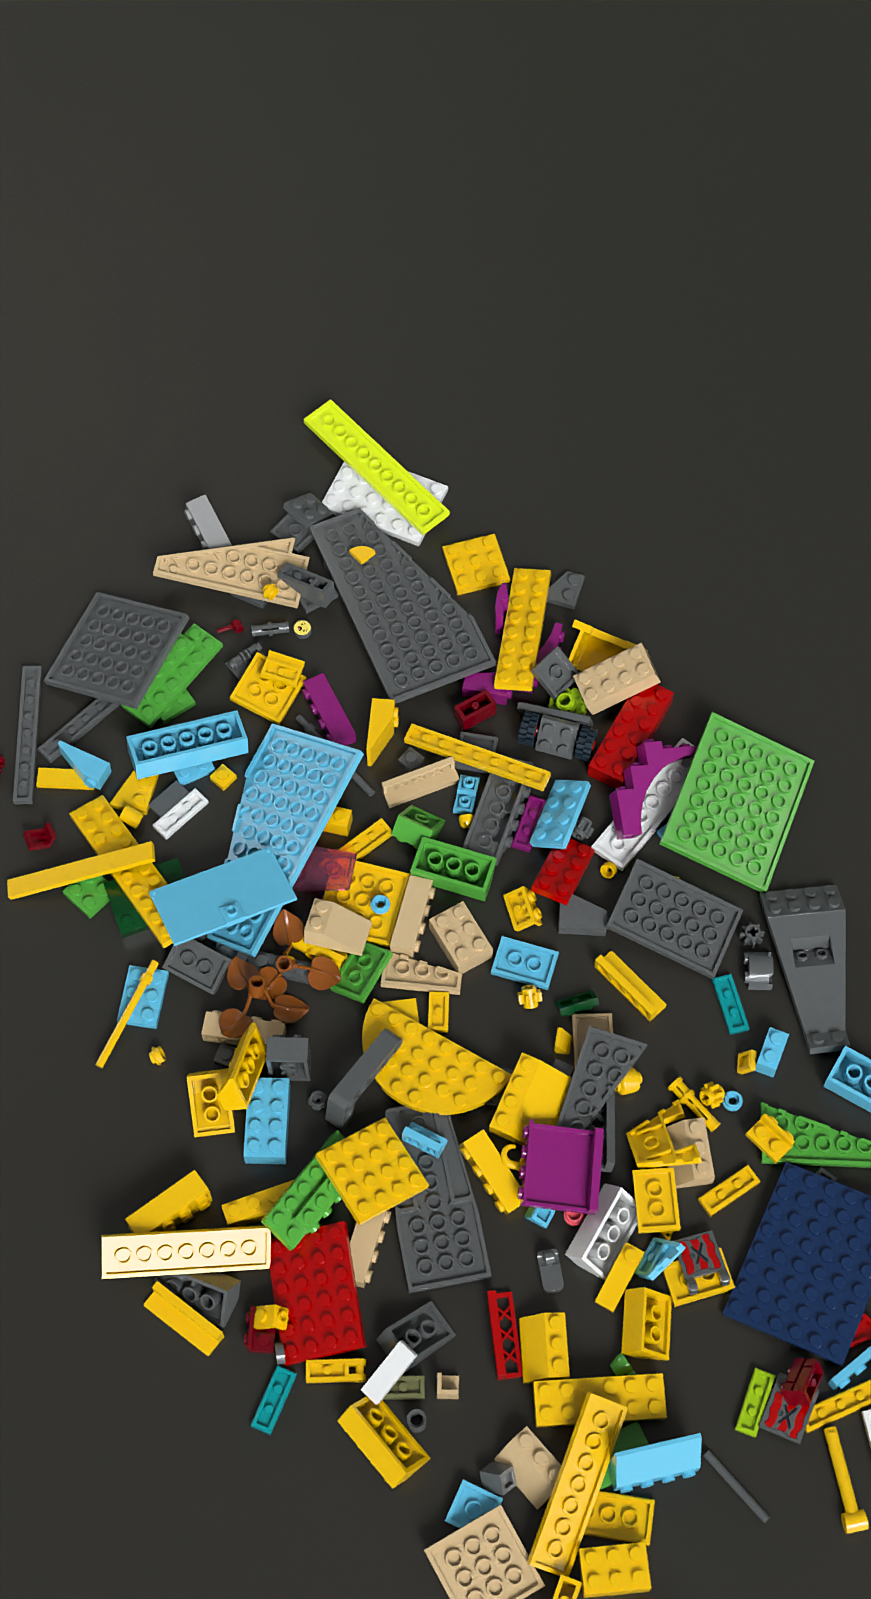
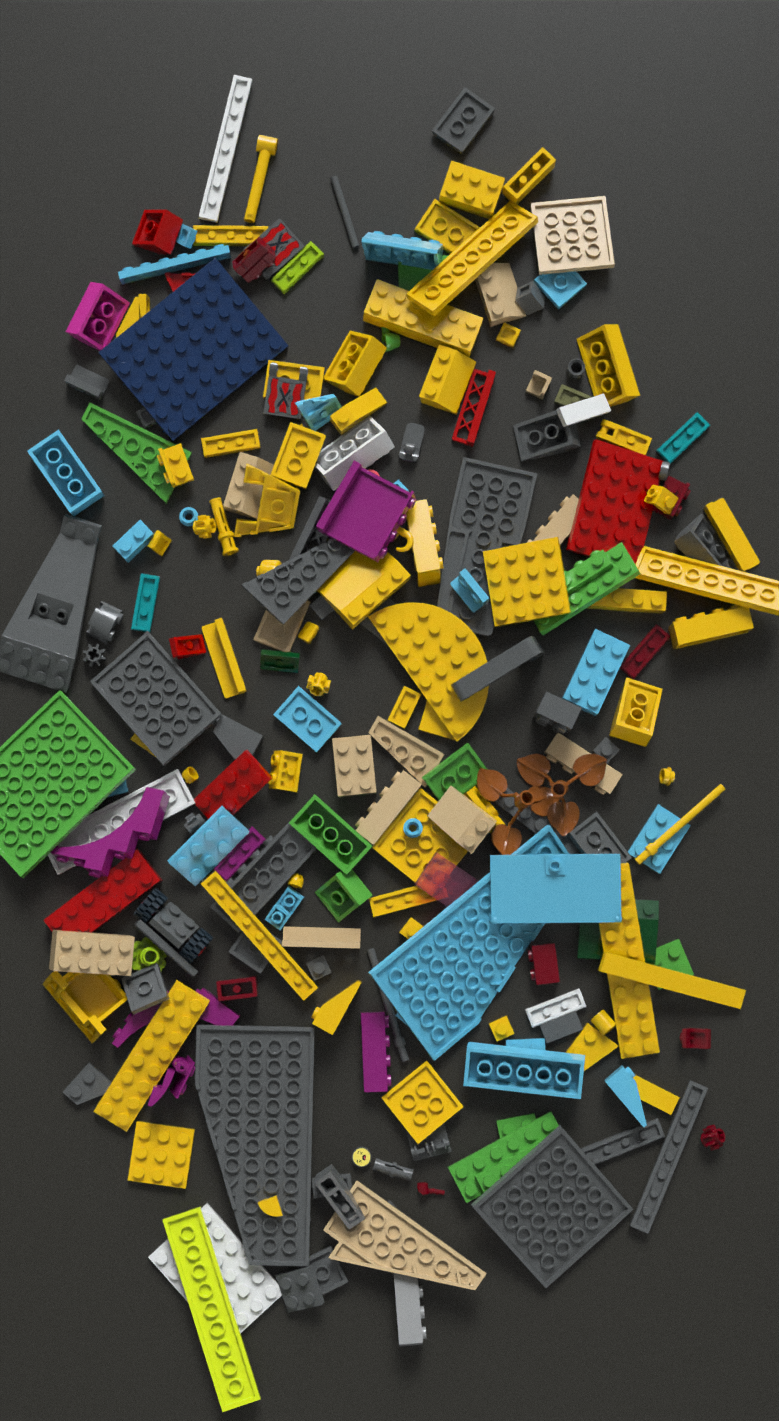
camera: 160 degrees left, 20 degrees up
(206, 843) = (544, 964): none -> dark red brick
(226, 1165) = (644, 651): none -> dark red tile
(243, 1070) = (602, 716): yellow slope -> none
(270, 591) = (378, 1203): yellow plate -> none
(282, 669) = (401, 1112): yellow plate -> none
(318, 1095) = (548, 674): dark grey plate -> none
(490, 625) = (185, 1069): none -> magenta hinge
(503, 1429) = (508, 335): none -> yellow tile
(670, 978) = (187, 646): none -> red slope

